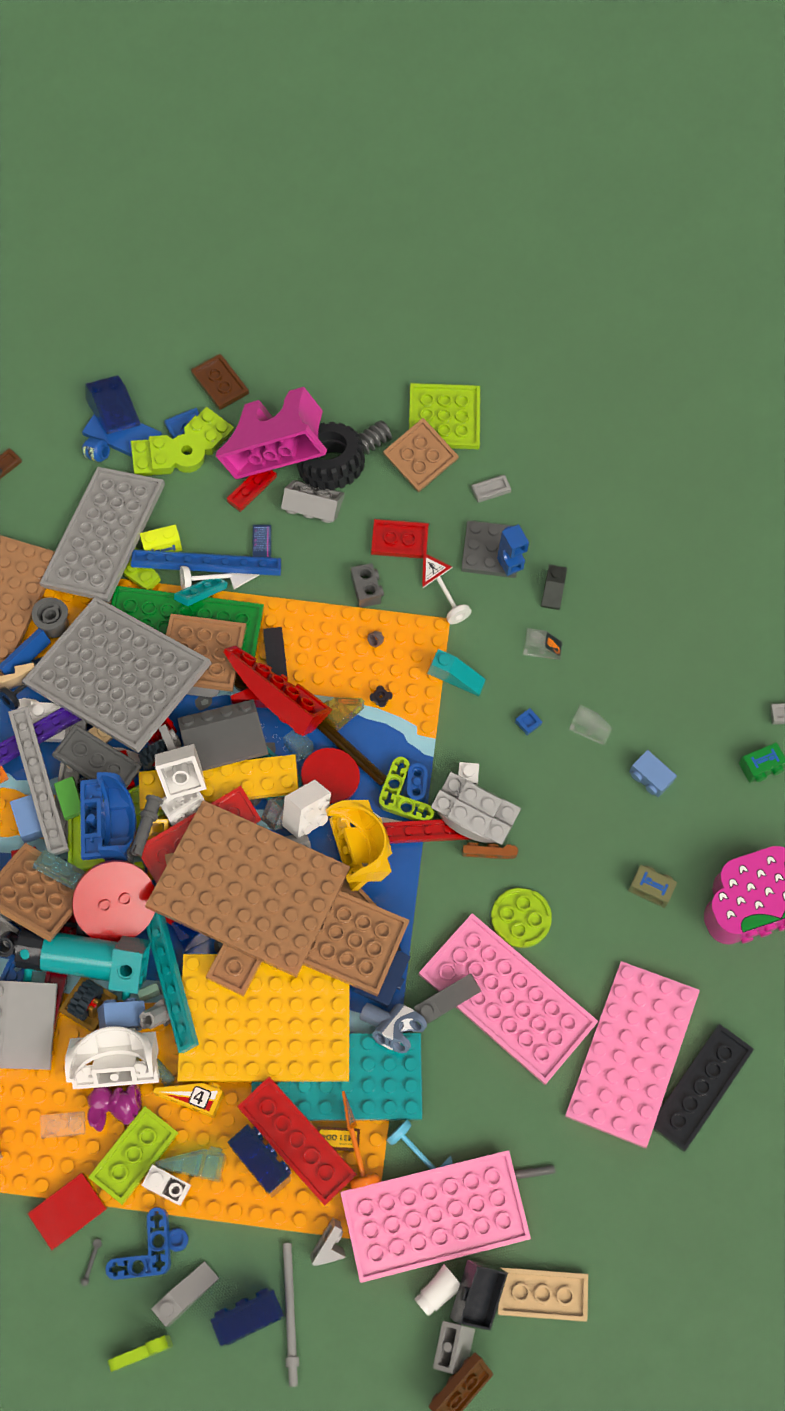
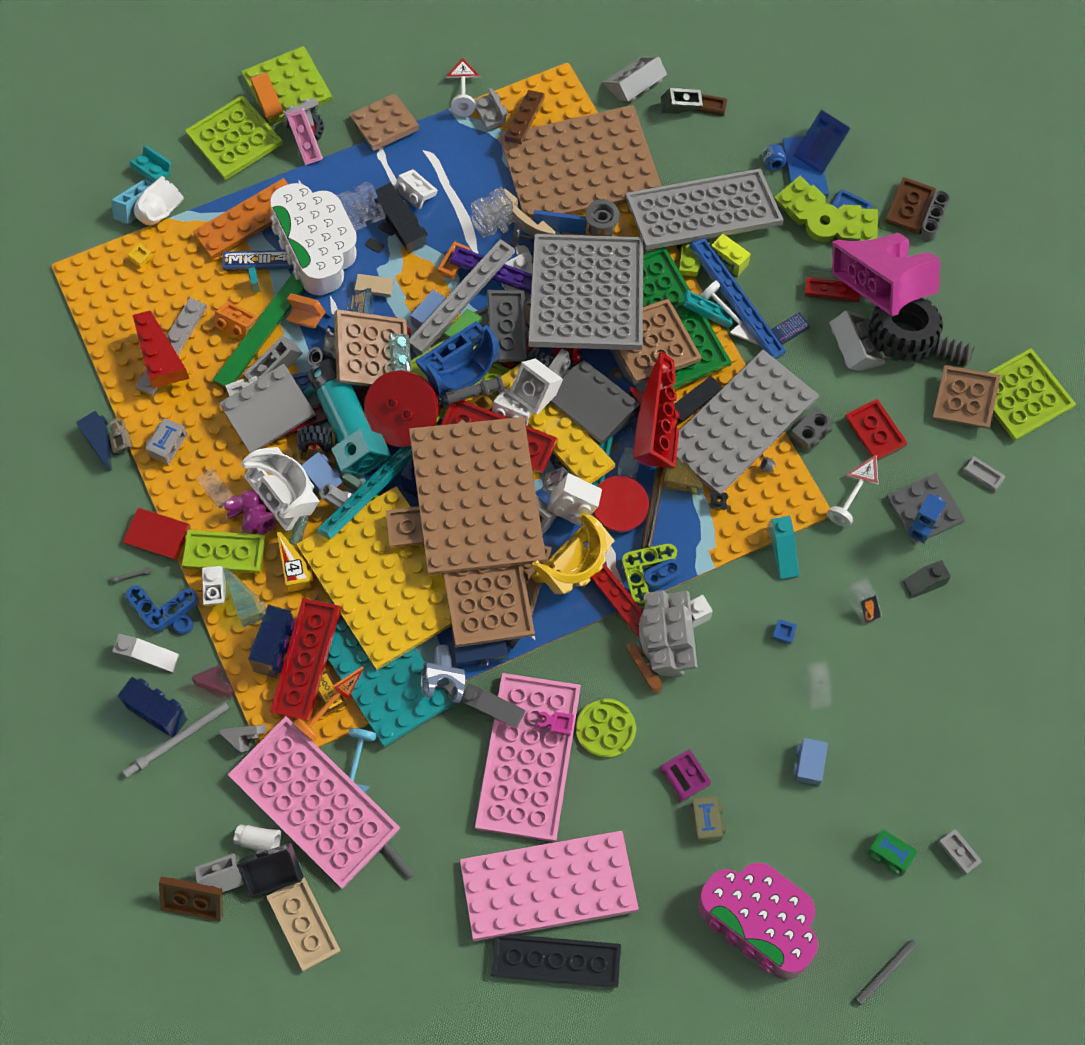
camera: 60 degrees right, 0 degrees up
(151, 1348) = (87, 649): lime beam -> none
(244, 370) = (936, 209): none -> dark grey beam
(253, 1247) = (209, 680): none -> clear pink slope
(322, 631) = (743, 421): none -> light grey plate
(497, 951) = (560, 723): none -> dark pink plate
(603, 873) = (691, 773): none -> magenta plate

